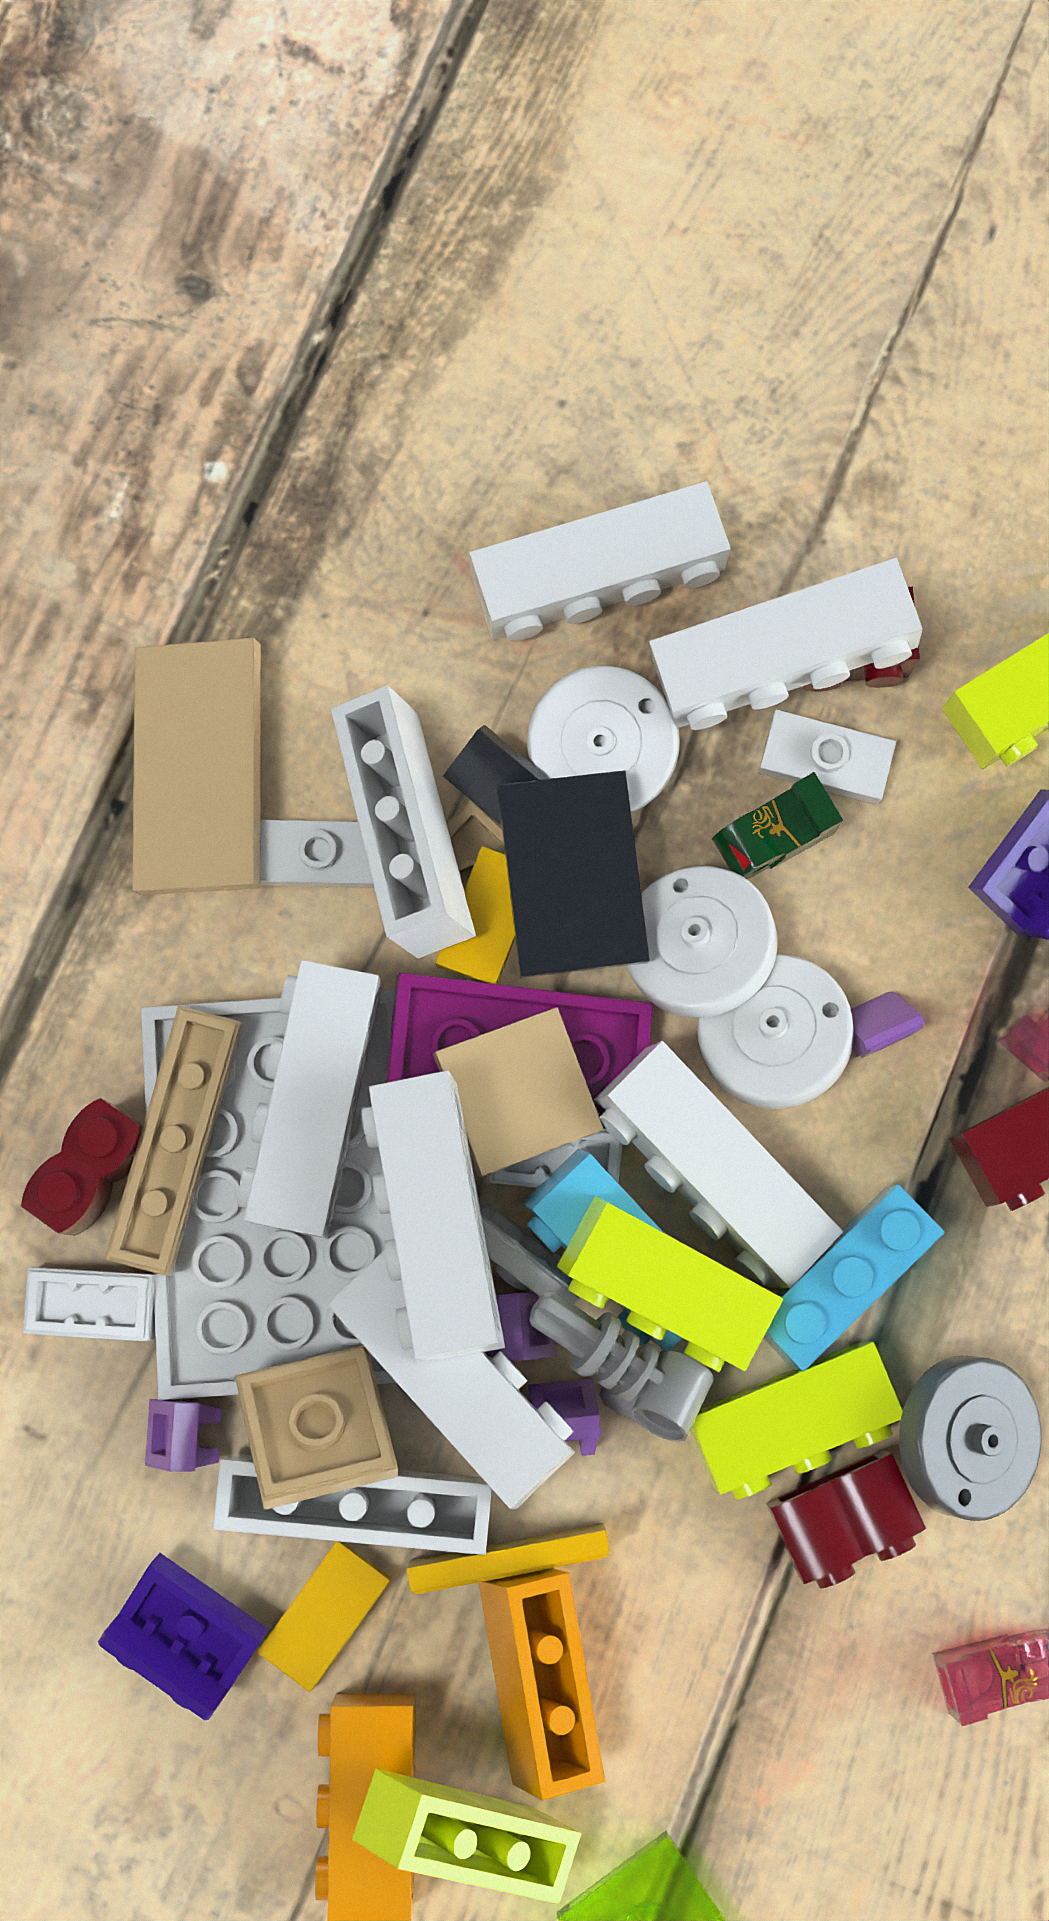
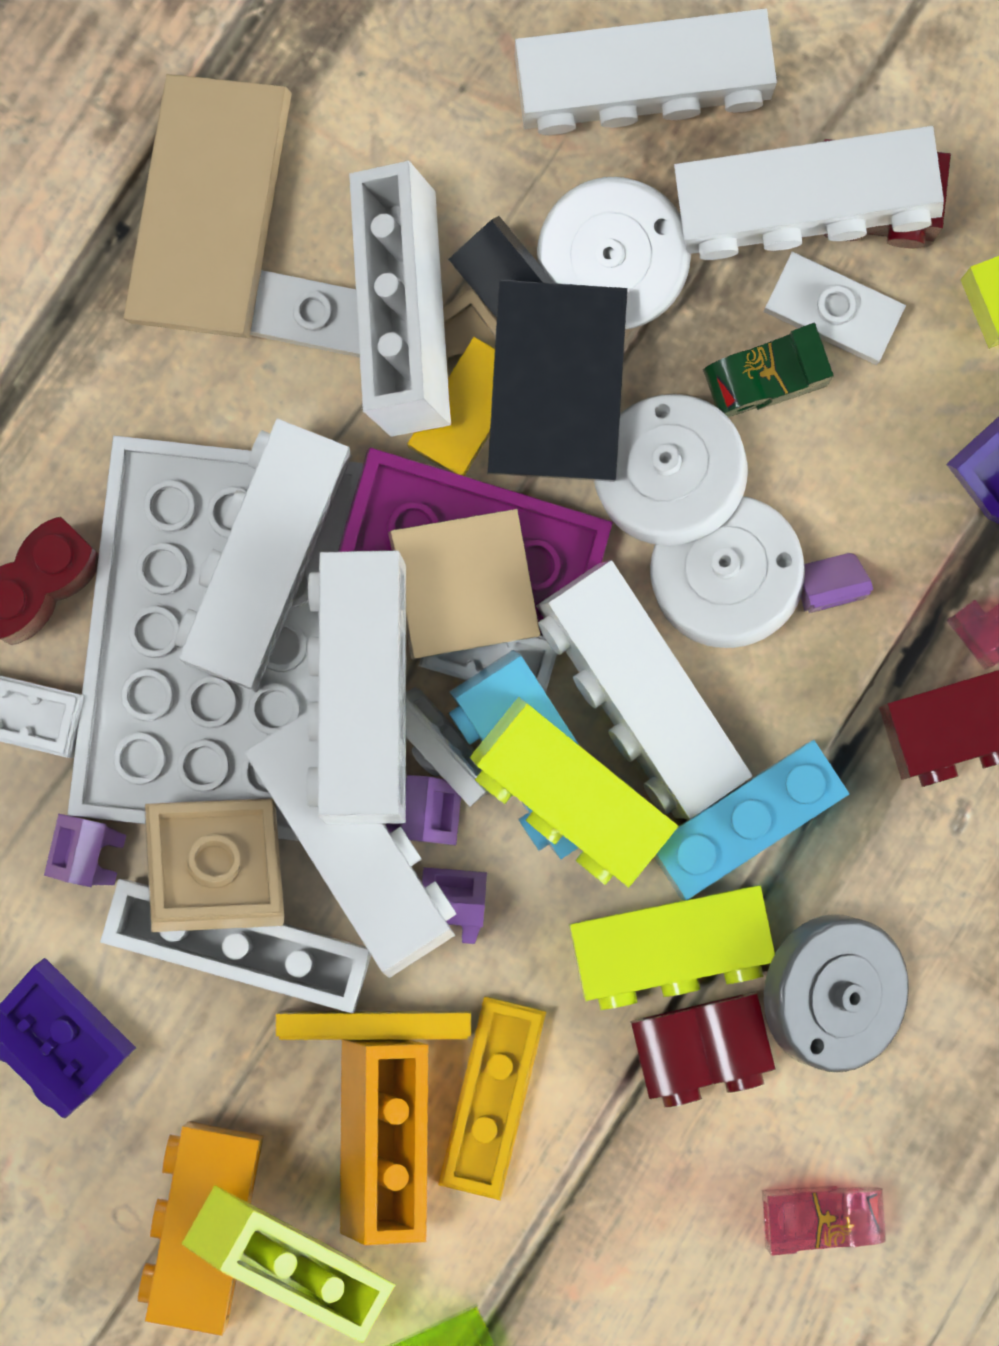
camera: 10 degrees right, 5 degrees up
(174, 1141) = (124, 570): tan tile -> none
(324, 1615) = (190, 1045): yellow tile -> none
(641, 1611) = (492, 1098): none -> yellow tile
(652, 1388) = (537, 893): light grey piece -> none

